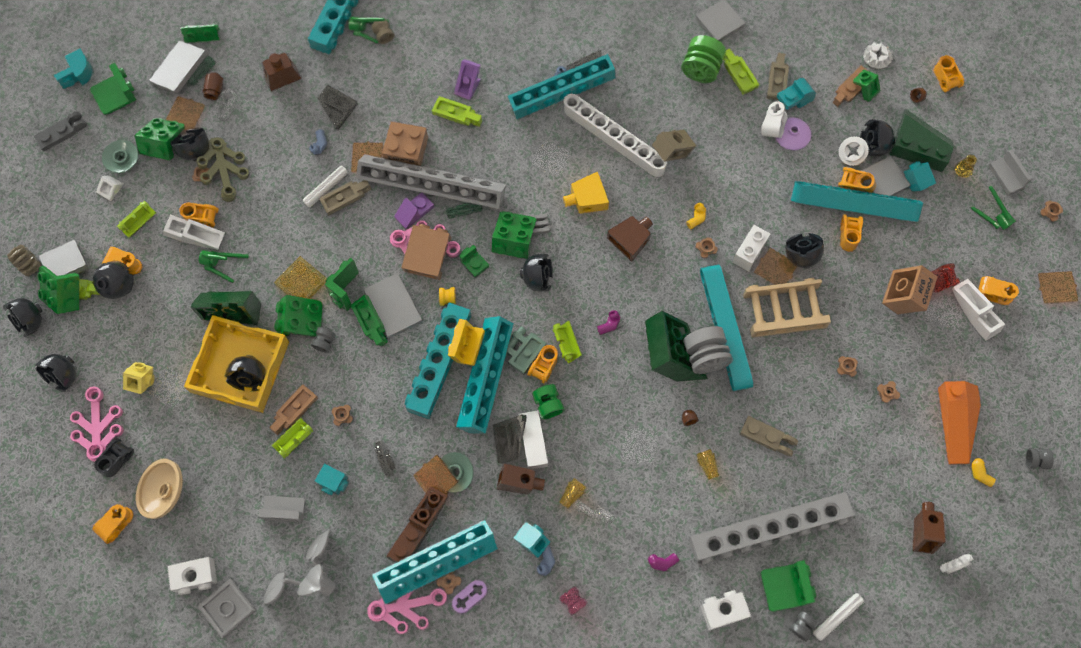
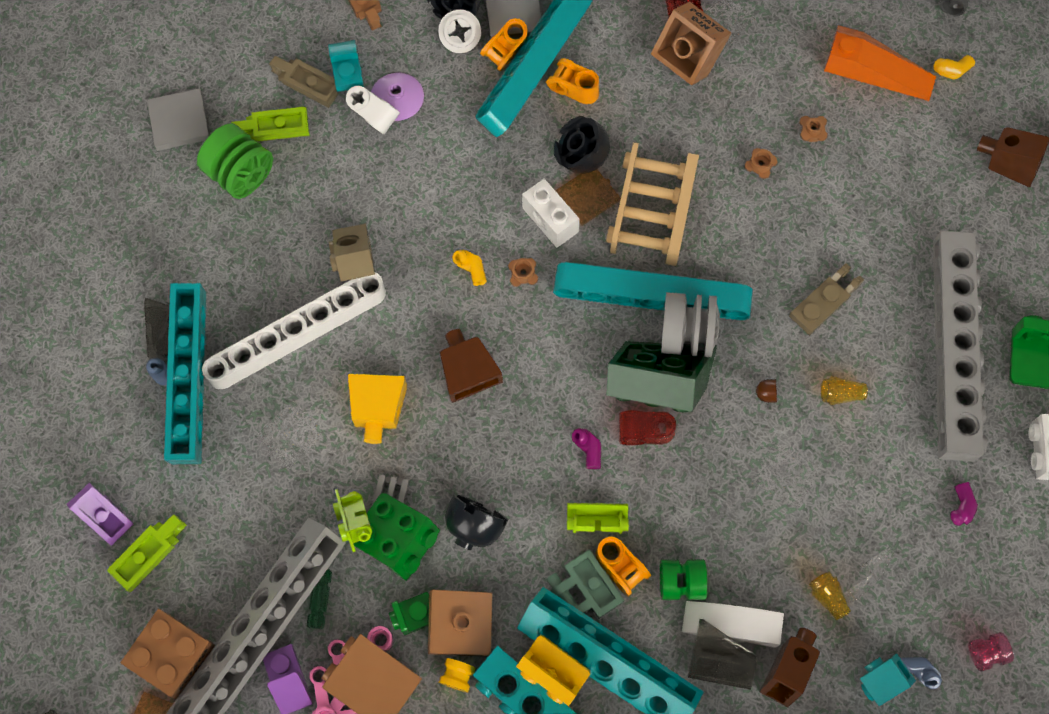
camera: 70 degrees left, 0 degrees up
(477, 287) = (460, 623): none -> medium nougat plate
(513, 206) = (354, 517): none -> lime hinge
(633, 349) = (642, 427): none -> clear red piece

